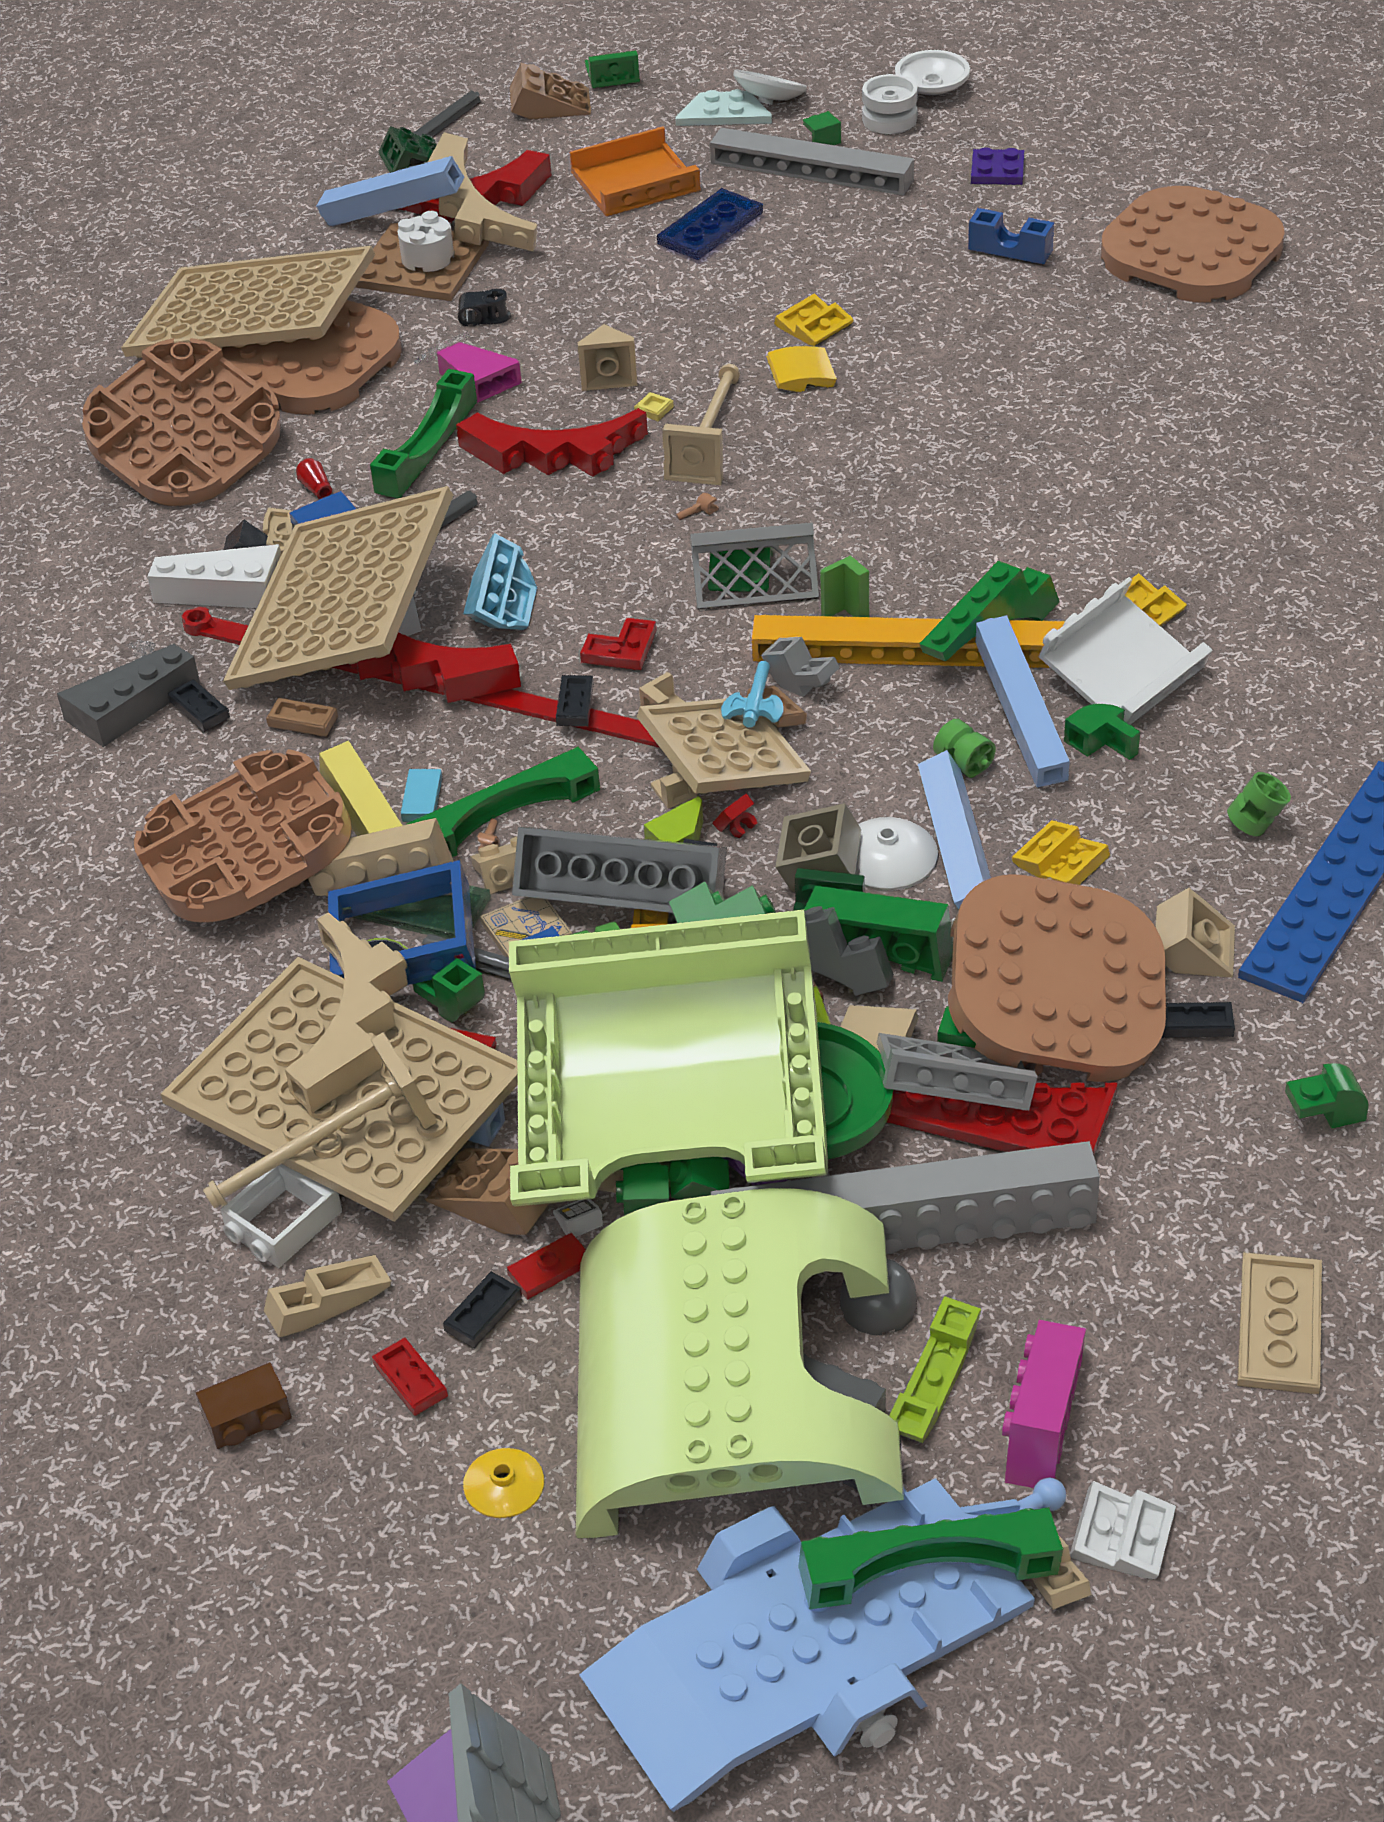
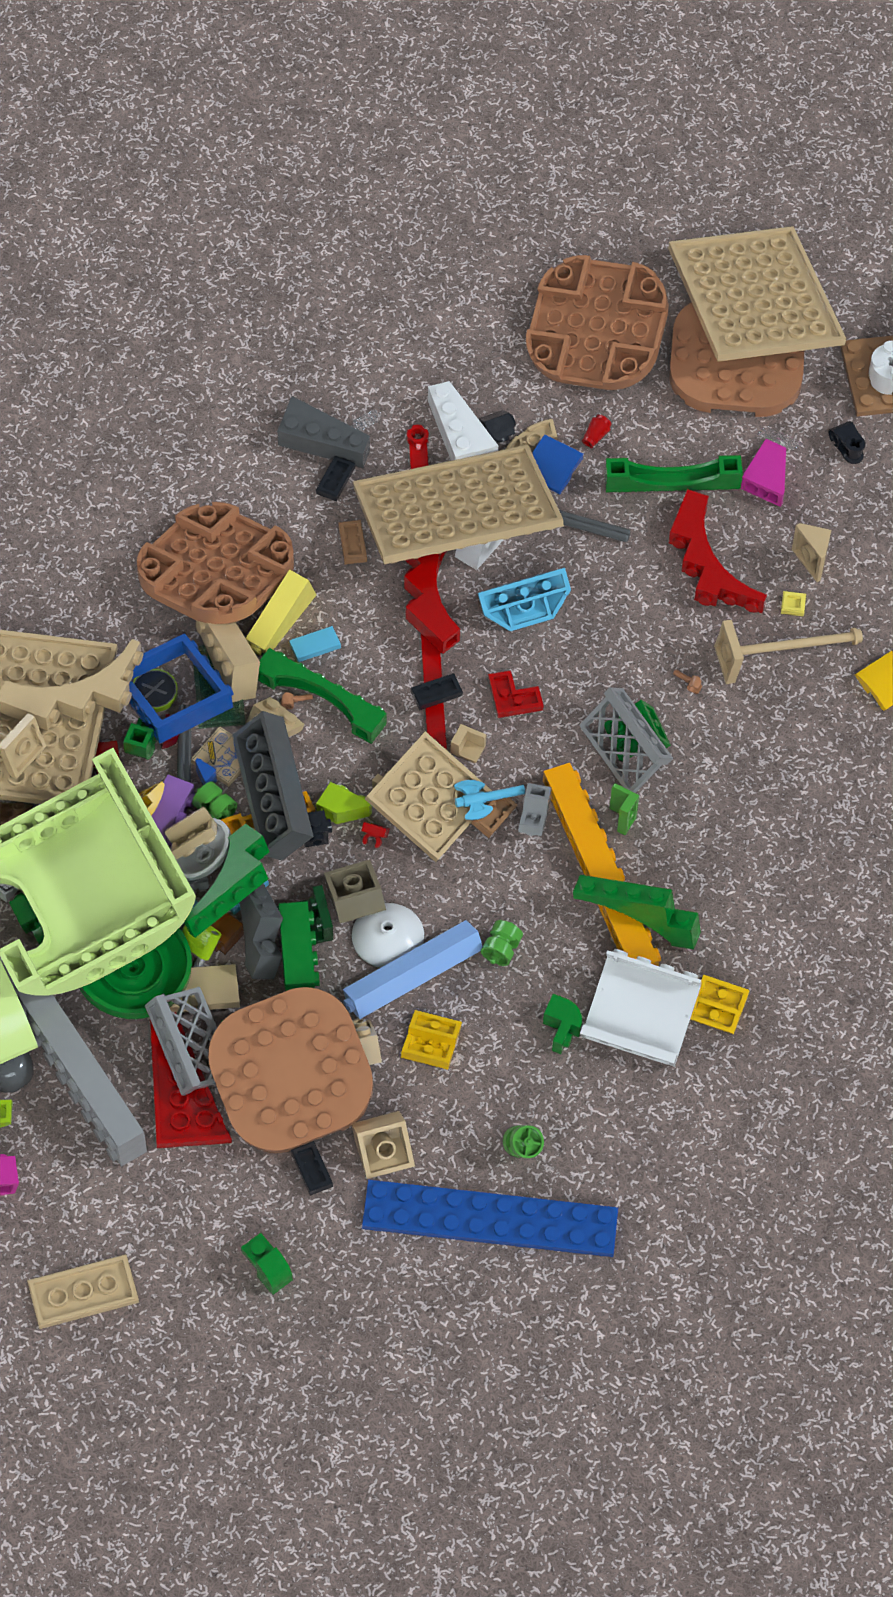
camera: 60 degrees right, 15 degrees up
(1022, 702) = (558, 959): light blue brick -> none

